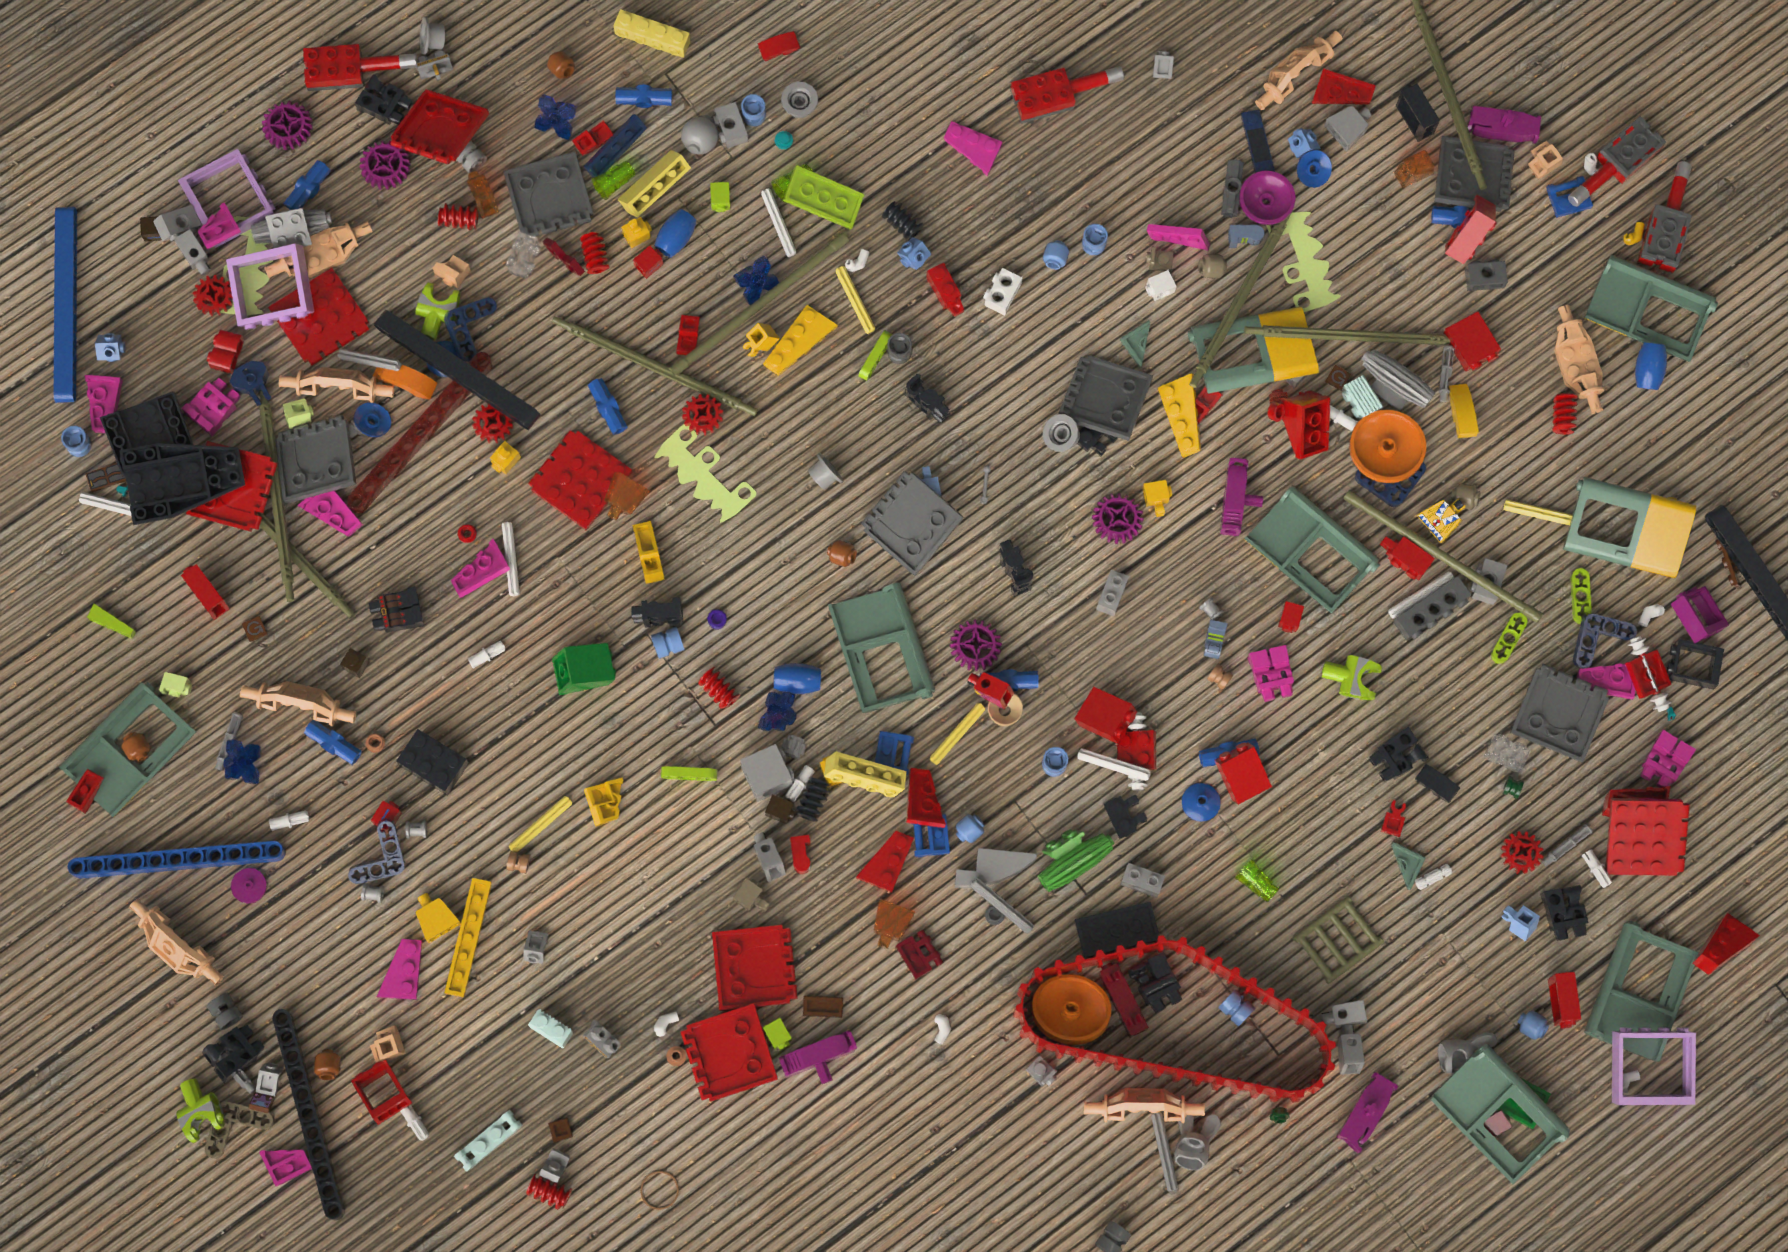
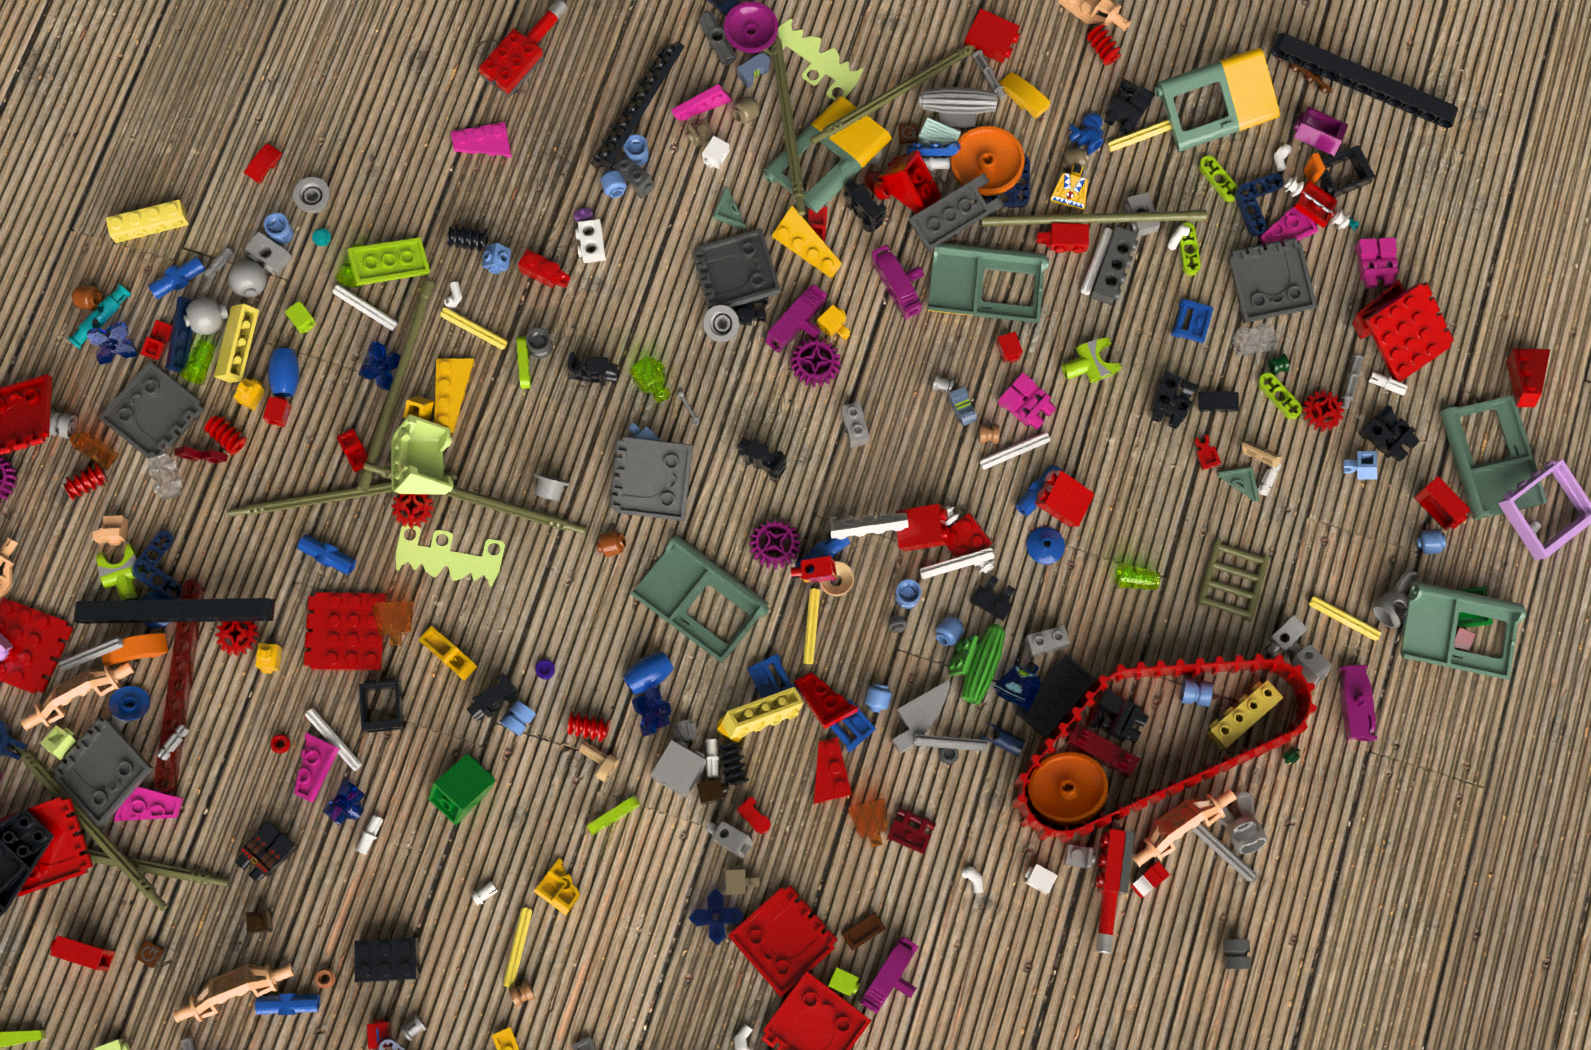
camera: 35 degrees left, 0 degrees up
(384, 474) = (172, 743): none -> light grey axle
(484, 616) = (345, 804): none -> clear blue plant
(544, 763) = (484, 893): none -> white pin
(558, 575) = (385, 725): none -> black window
(564, 86) = (104, 310): none -> teal piece
(644, 144) = (205, 316): none -> light grey brick
(685, 106) = (218, 263): none -> light grey axle
(704, 906) = (705, 917): none -> clear blue plant
(714, 729) = (607, 762): none -> tan piece
(735, 377) = (418, 457): none -> yellowish green windscreen
(758, 441) = (496, 504): none -> olive axle
(970, 439) = (650, 378): none -> clear neon green piece
(996, 1066) = (1040, 878): none -> white brick
(1012, 265) = (583, 215): none -> medium lavender piece
(1028, 780) = (897, 624): none -> dark grey plate
(1050, 937) = (1006, 741): none -> dark blue piece
(1051, 1109) = (1112, 881): none -> red piece
(1062, 681) = (868, 524): none -> white wing
(1067, 816) = (949, 631): none -> medium blue head
(1077, 260) = (635, 175): none -> dark grey bracket
(1085, 1130) = (1149, 879): none -> red leg
(1093, 900) = (1019, 685): none -> clear blue torso
(1126, 199) = (638, 103): none -> black plate
(1128, 472) = (797, 318): none -> magenta piece
(1231, 705) = (1014, 450): none -> white axle
(1252, 407) = (864, 206): none -> black hips
(1264, 1055) = (1246, 714): none -> light yellow brick
(1323, 471) = (953, 213): none -> dark grey hinge
(1348, 406) = (935, 149): none -> blue plate
(1410, 1036) = (1345, 618): none -> light yellow axle
(1441, 851) = (1261, 453): none -> tan slope
(1470, 705) = (1198, 322): none -> blue plate
(1497, 483) = (1090, 135): none -> blue animal
(1500, 828) = (1279, 388): none -> lime beam
(1504, 620) = (1177, 235): none -> white arm
(1540, 484) = (1125, 112): none -> black hips
(1668, 642) = (1314, 168): none -> orange tile

